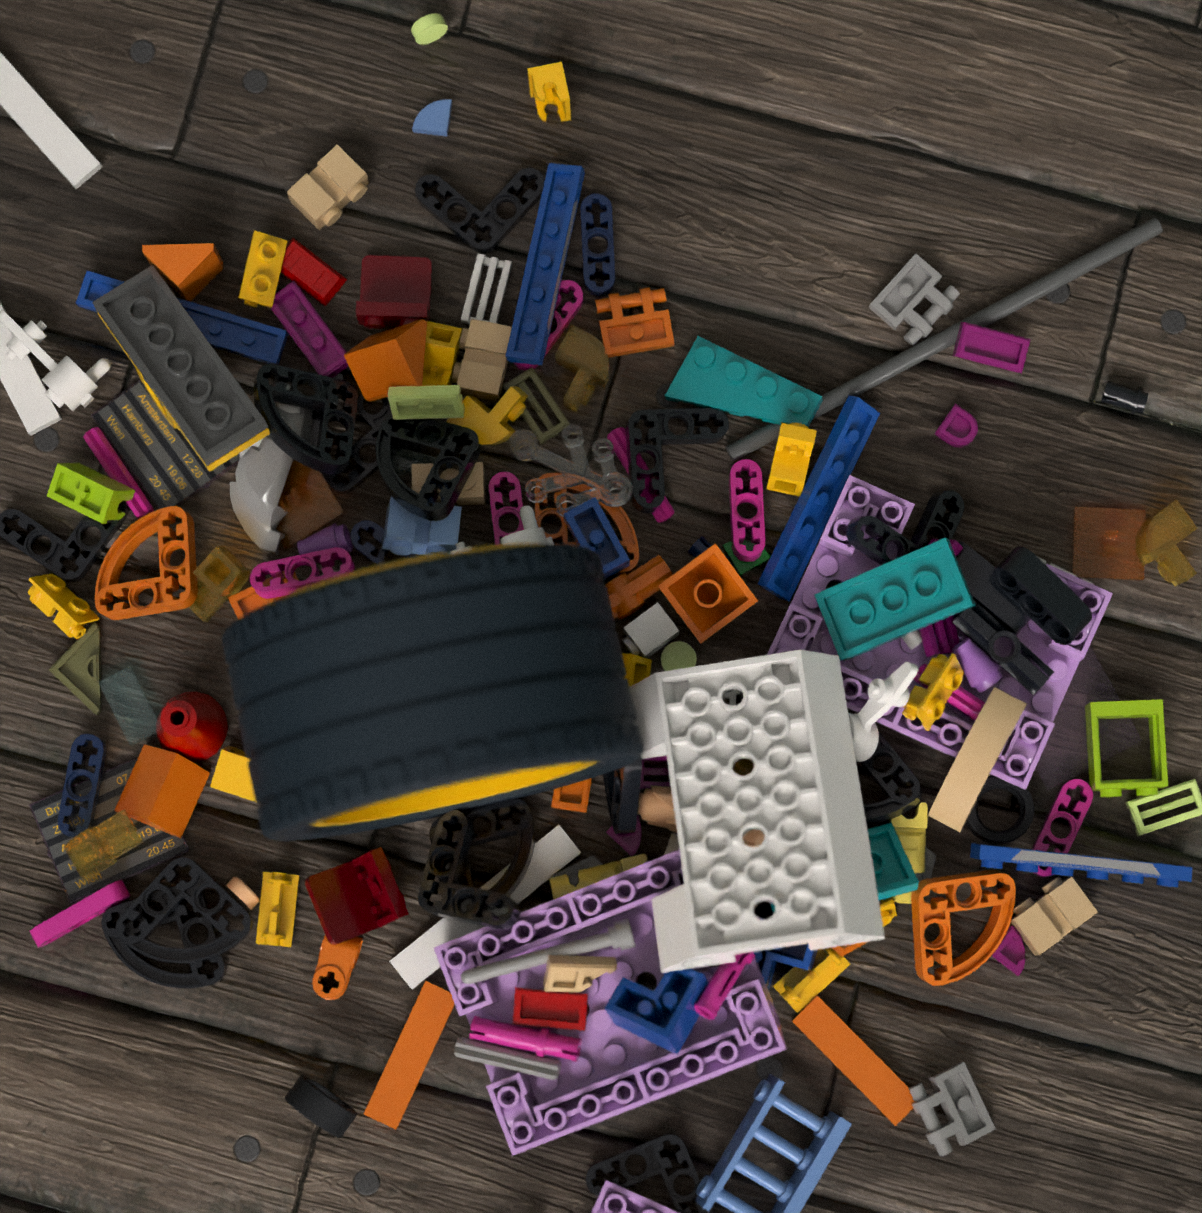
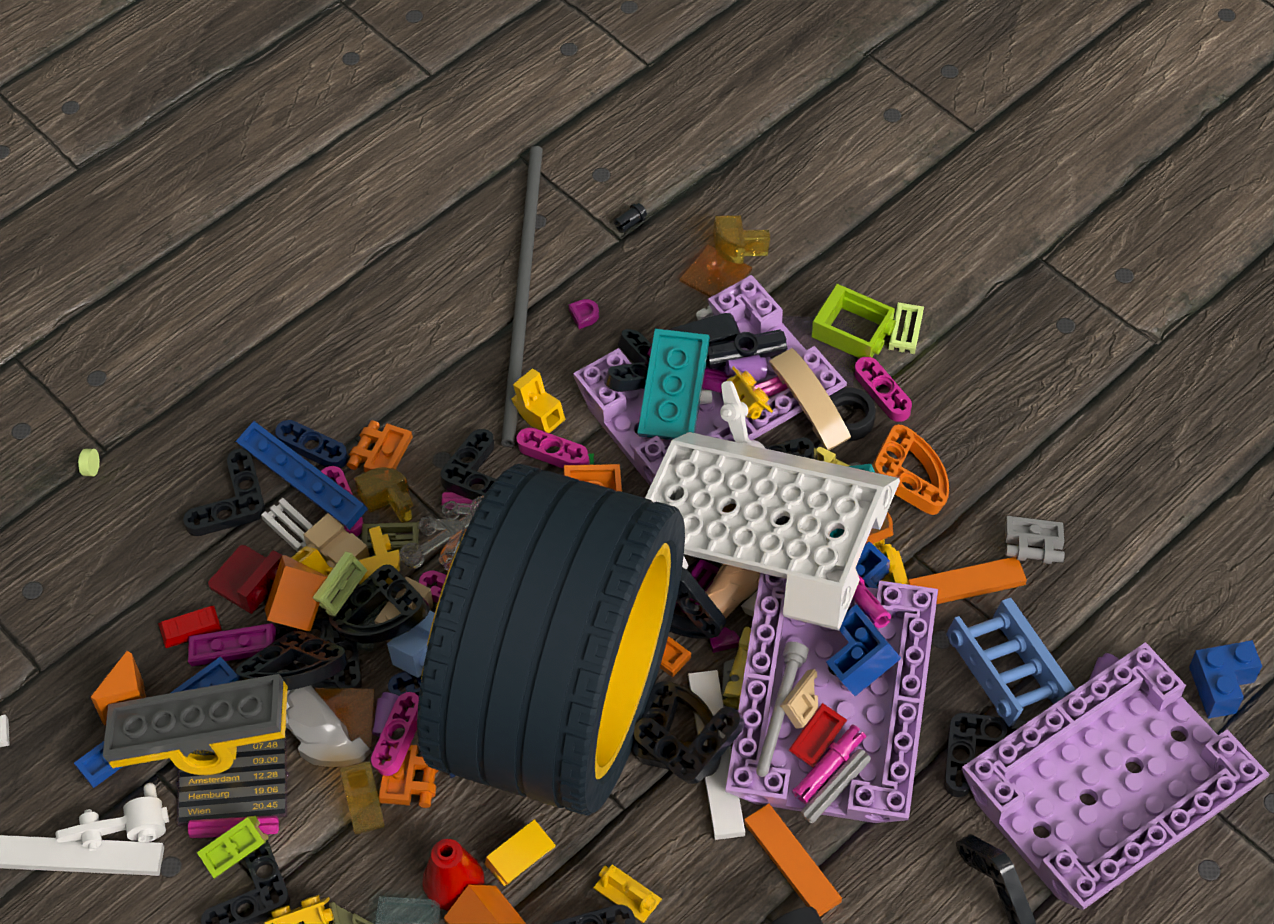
camera: 60 degrees left, 25 degrees down
(162, 586) = (338, 835): orange beam -> none
(242, 893) = (599, 902): light nougat tile -> none
(262, 270) = (166, 648): yellow hinge -> none
(329, 188) = (144, 579): tan brick -> none
(338, 960) = (691, 869): orange piece -> none
(356, 897) = (655, 823): dark red bracket -> none
(434, 118) = (150, 494): medium blue tile -> none
(549, 86) = (191, 406): yellow hinge -> none
(735, 385) = (458, 417): teal wing -> none
(818, 498) = (575, 407): blue plate -> none
(906, 291) = (477, 293): light grey plate -> none
(991, 347) = (547, 267): magenta tile -> none
(1011, 951) = (949, 457): magenta tile -> none
(1042, 595) = (716, 297): black beam -> none
(1052, 915) = (938, 418): tan brick -> none
(1065, 863) = (910, 386): blue plate -> none

